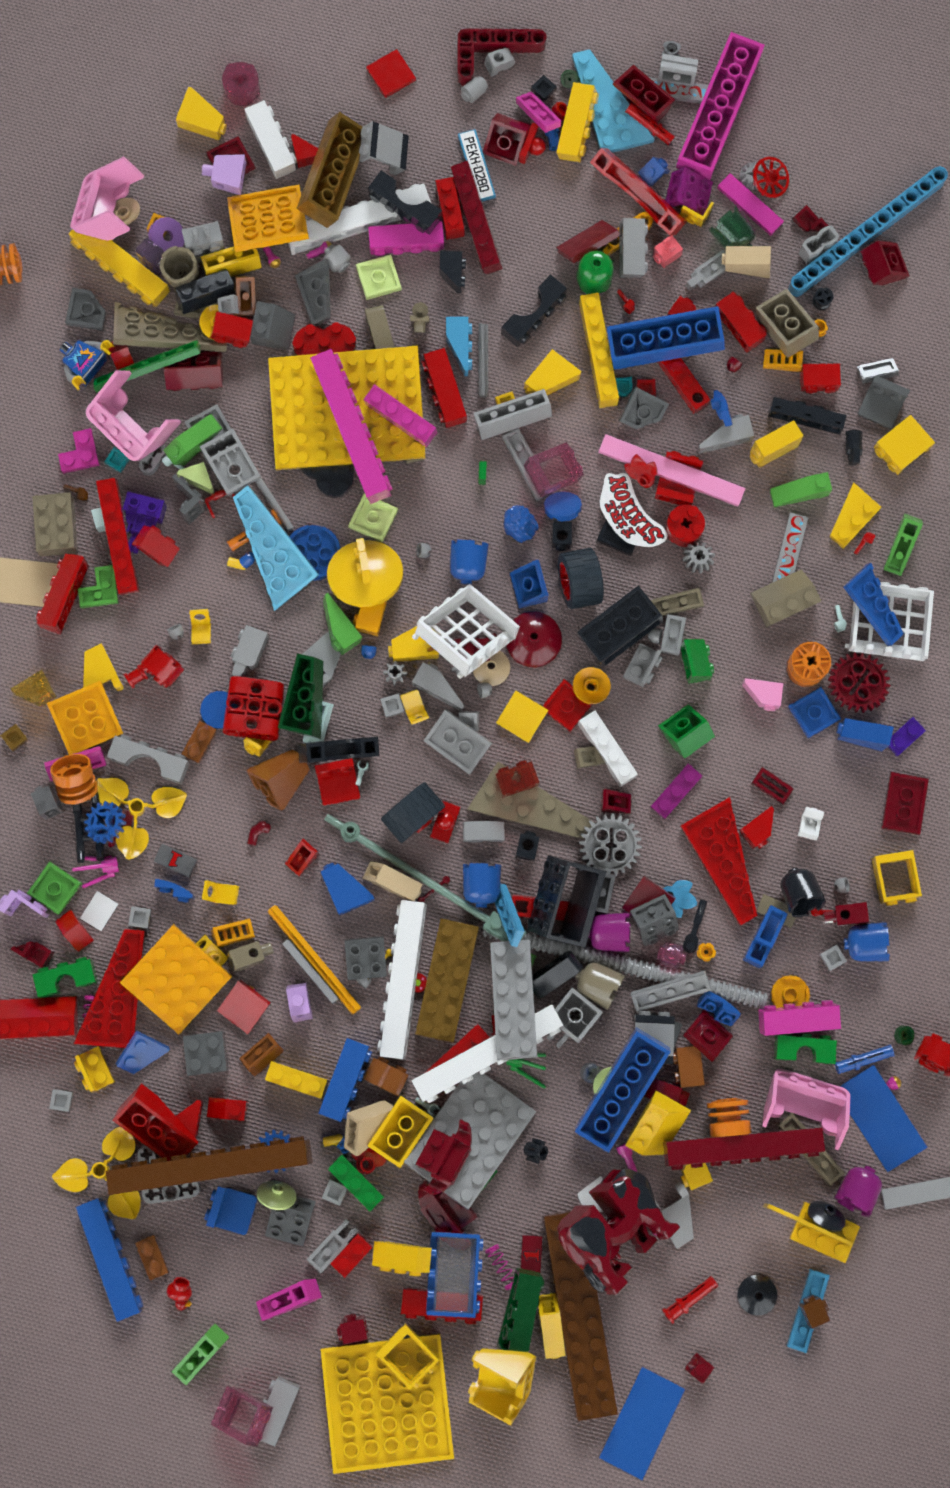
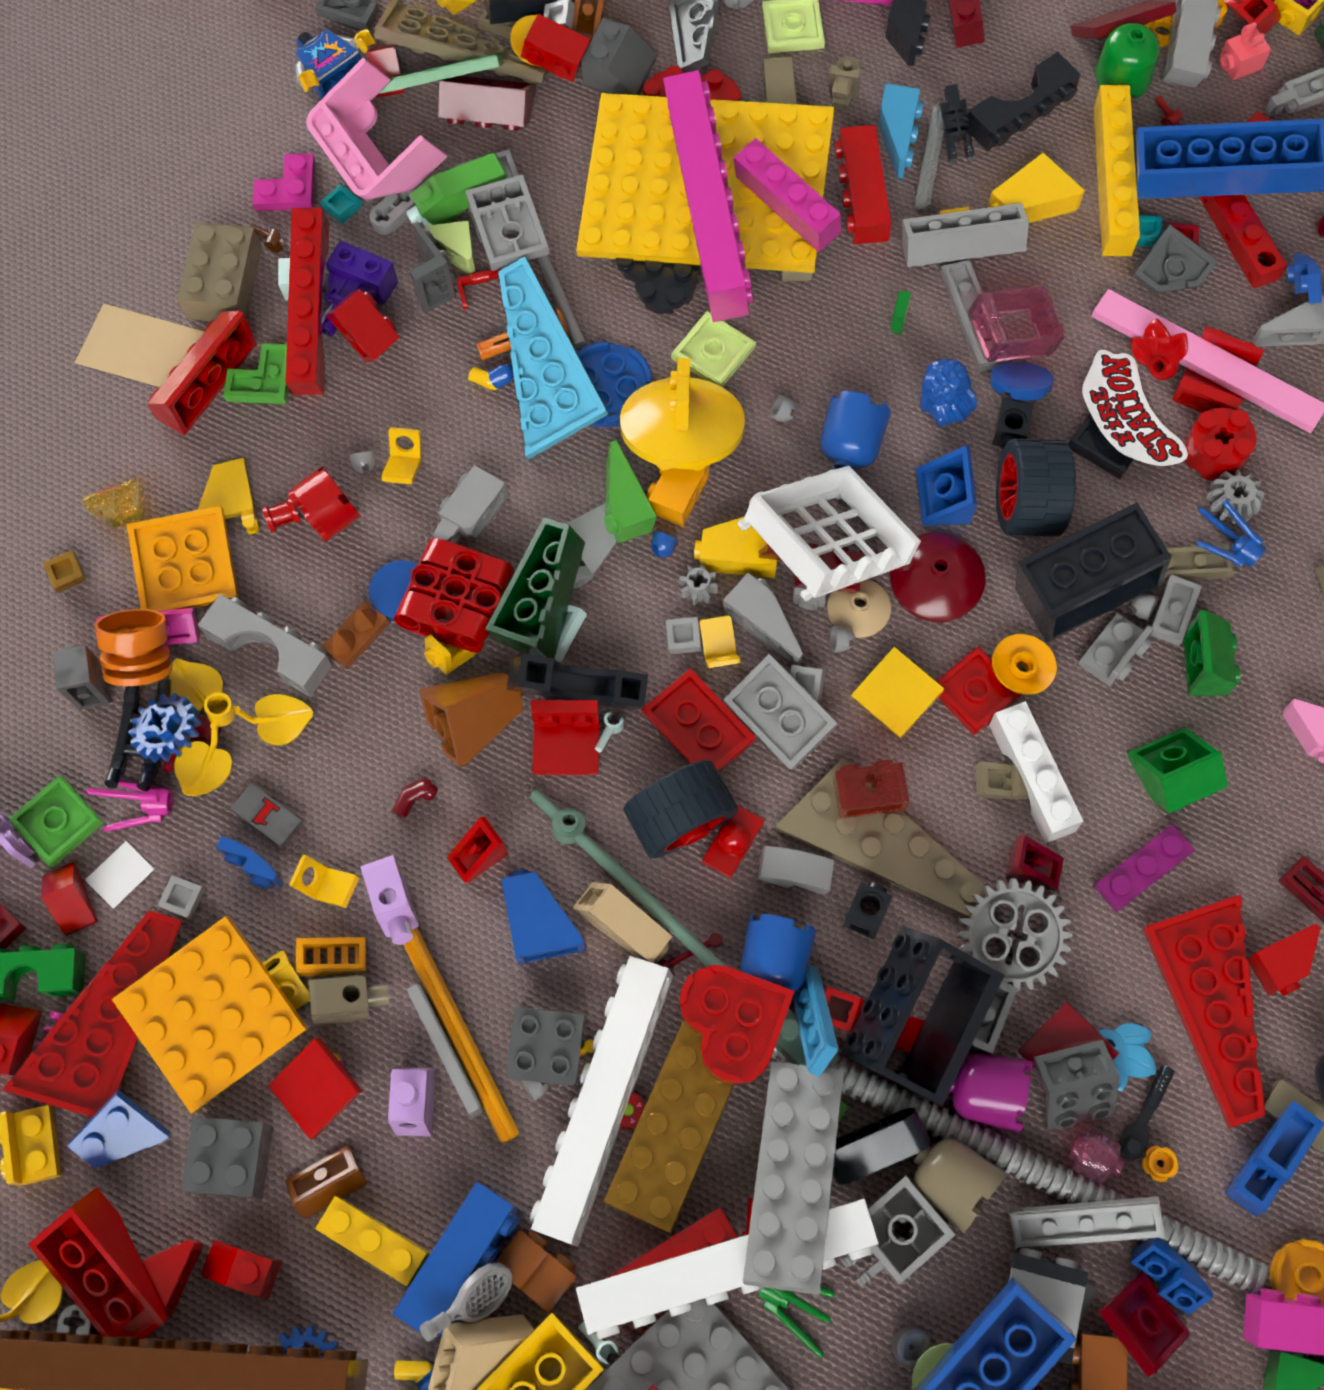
camera: 20 degrees right, 10 degrees down
(262, 896) = (394, 907): none -> lavender torso
(356, 1094) = (463, 1299): none -> light grey piece
(411, 757) = (698, 722): none -> red plate
(467, 923) = (736, 1018): none -> red plate
(495, 336) = (956, 123): none -> black hinge
(708, 589) = (1246, 548): none -> blue plant

